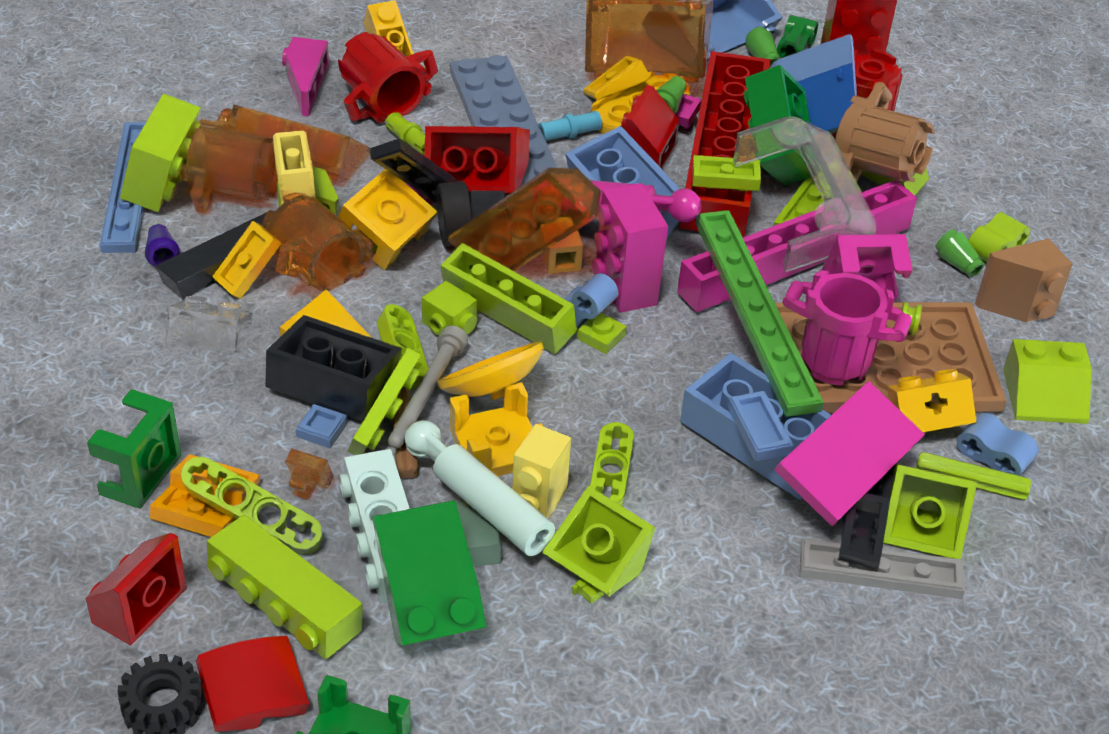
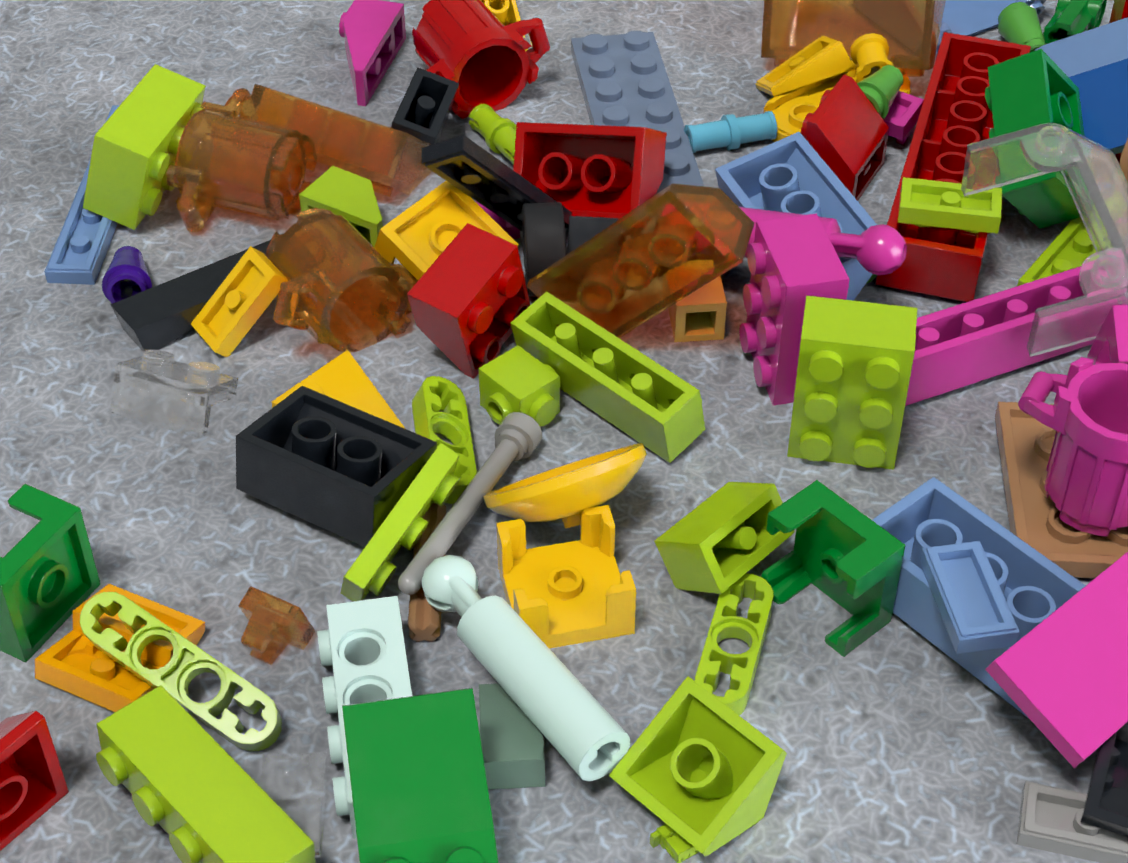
camera: 10 degrees right, 0 degrees up
(293, 163) = (320, 167): light yellow brick -> none
(321, 426) = (309, 552): medium blue tile -> none
(357, 116) = (426, 106): none -> black slope
(411, 250) = (471, 298): none -> red slope
(542, 468) = (621, 645): light yellow brick -> none
(592, 297) = (730, 381): medium blue axle -> none
(599, 399) = (721, 537): none -> lime brick
(602, 333) = (743, 433): lime plate -> none
(661, 69) = (869, 54): none -> yellow bush
(672, 294) = (852, 381): none -> lime brick
(676, 407) = (842, 557): none -> green panel
(759, 315) = (985, 426): bright green tile -> none

